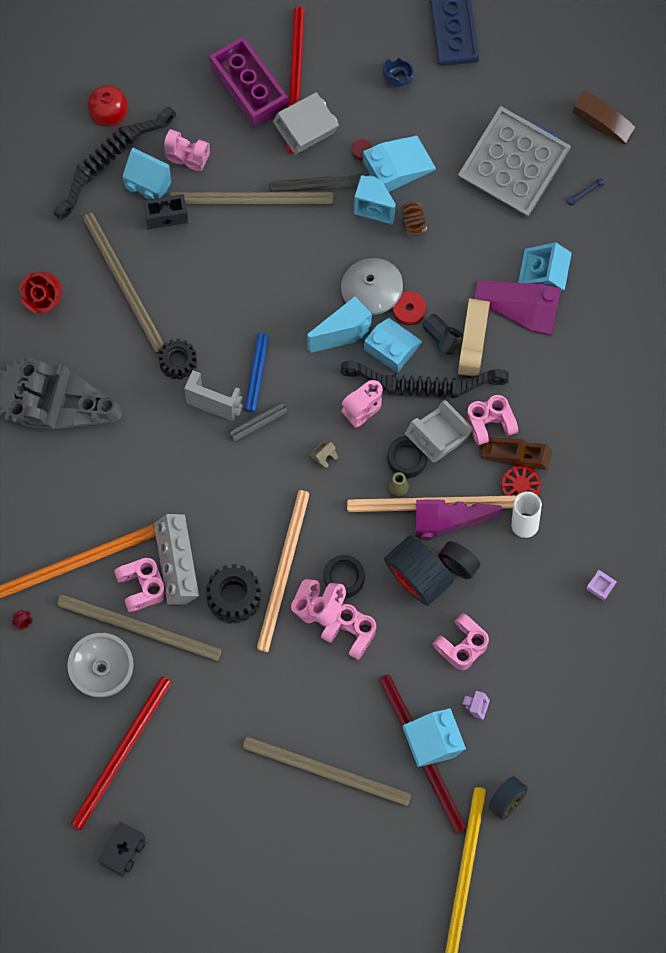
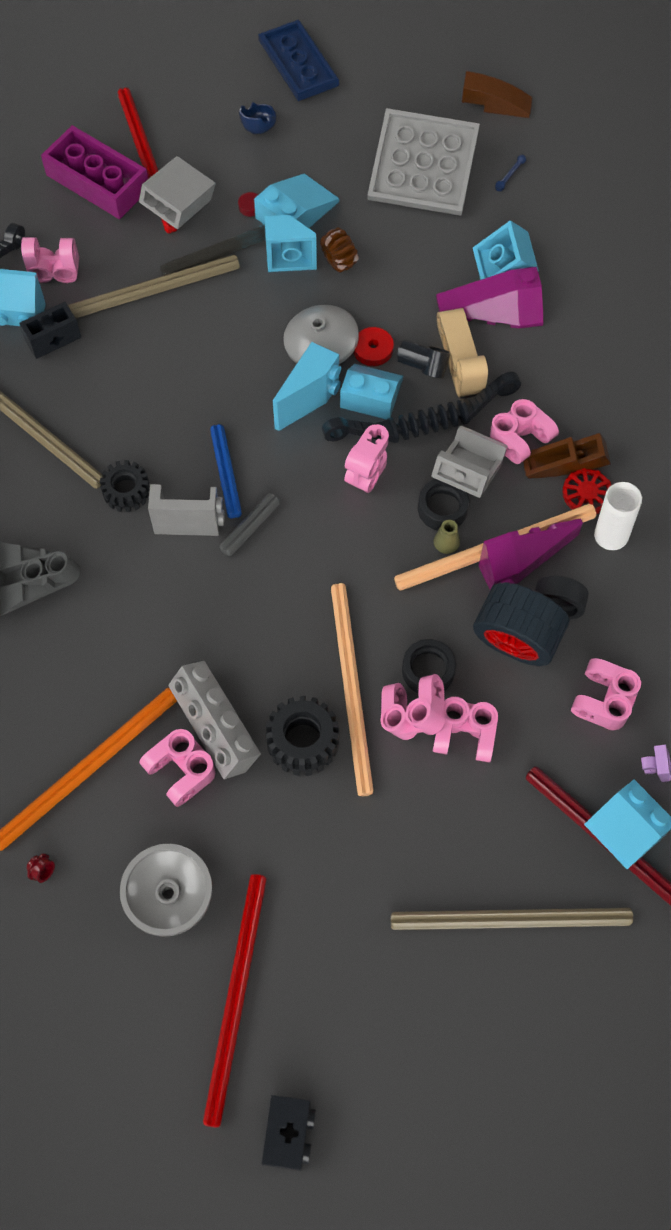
camera: 20 degrees left, 5 degrees down
(139, 627) = (197, 822): dark tan axle -> none
(323, 450) = (340, 533): dark tan tile -> none

